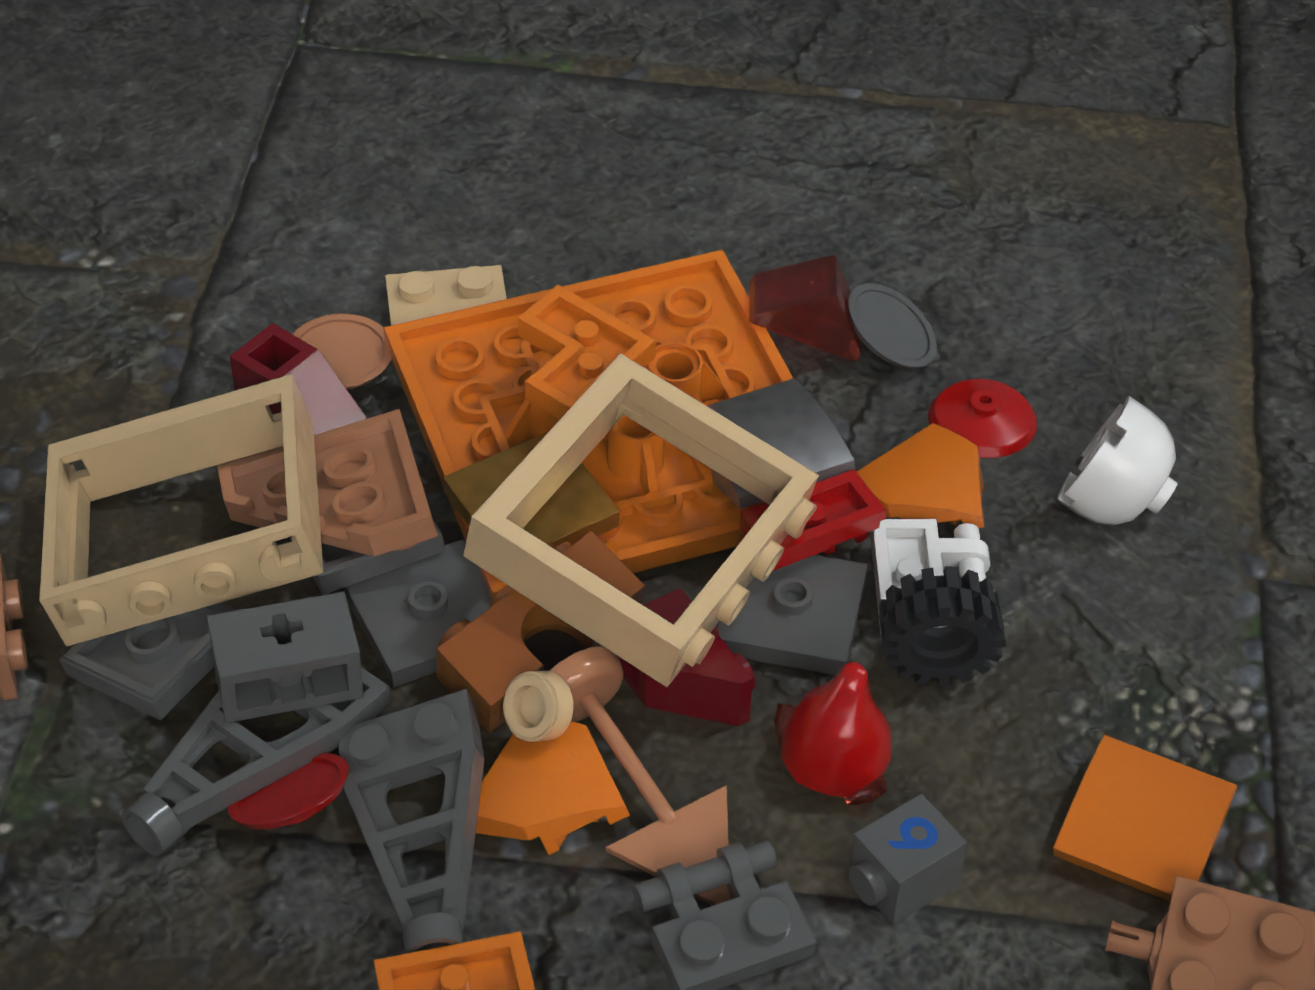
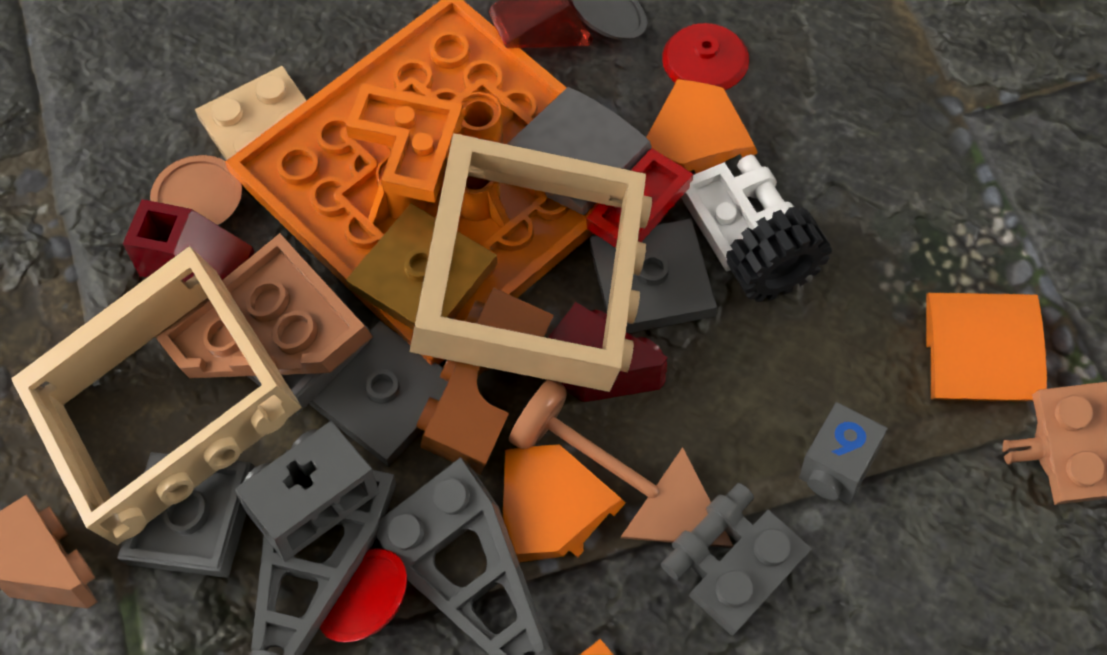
camera: 20 degrees left, 15 degrees up
(538, 706) = (521, 448): tan tile -> none
(837, 738) = (745, 379): red hat -> none
(1123, 468) = (836, 66): white cylinder -> none

